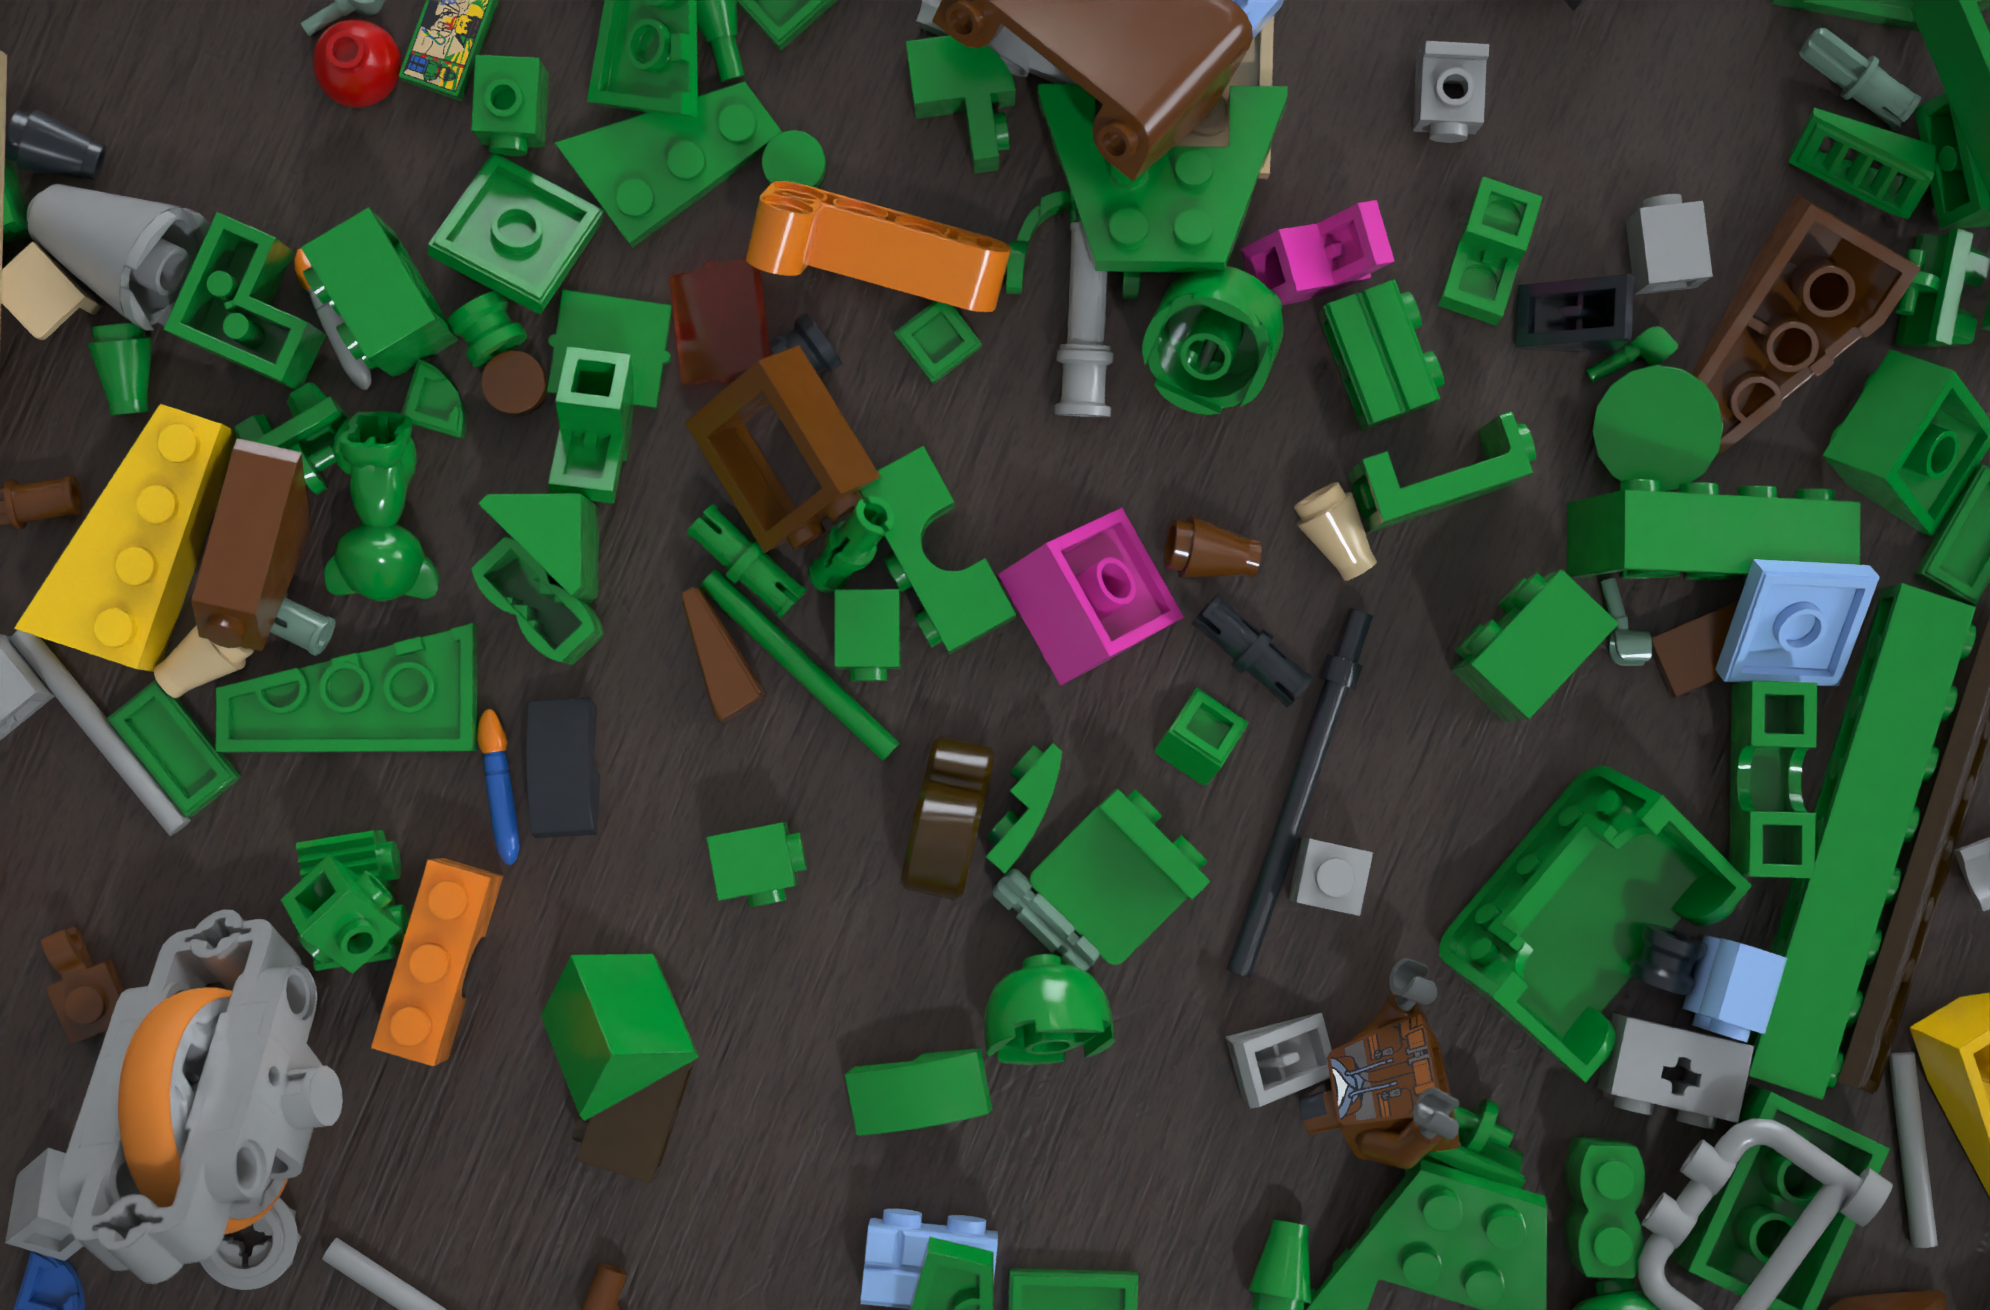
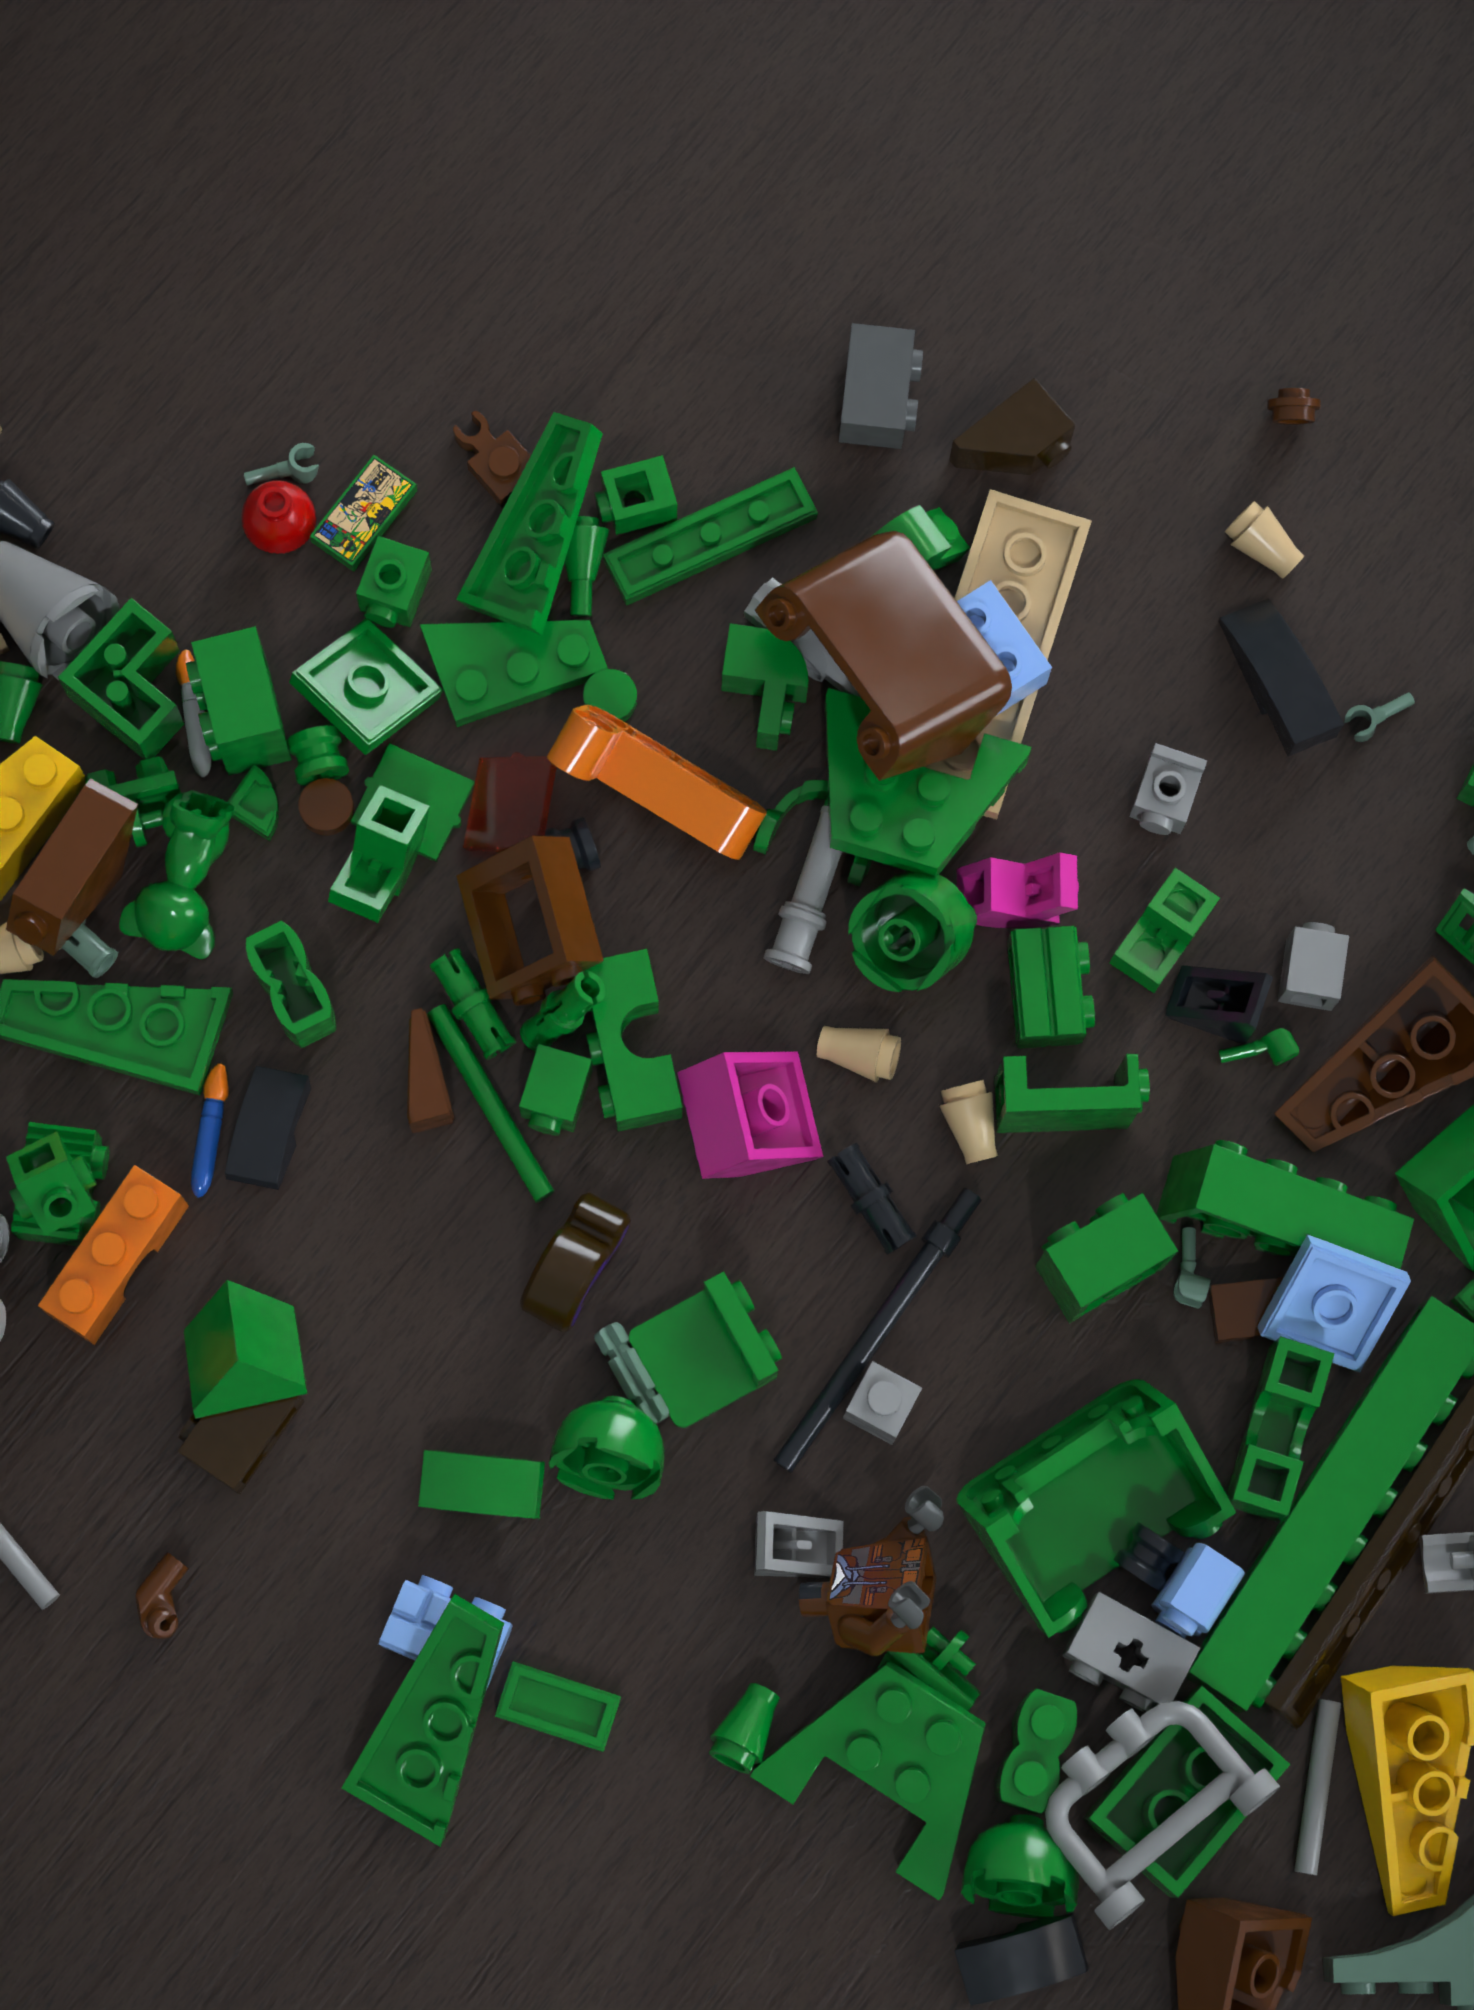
camera: 15 degrees right, 10 degrees down
(557, 533) = (327, 929): green slope -> none
(757, 863) = (404, 1252): green brick -> none
(937, 340) = (685, 872): green tile -> none
(1035, 786) = (655, 1258): green slope -> none
(1194, 487) = (861, 1050): none -> tan cone
(1201, 737) = (807, 1260): green slope -> none
(1208, 550) = (860, 1106): reddish brown cone -> none
(1658, 427) = (1264, 1109): green tile -> none

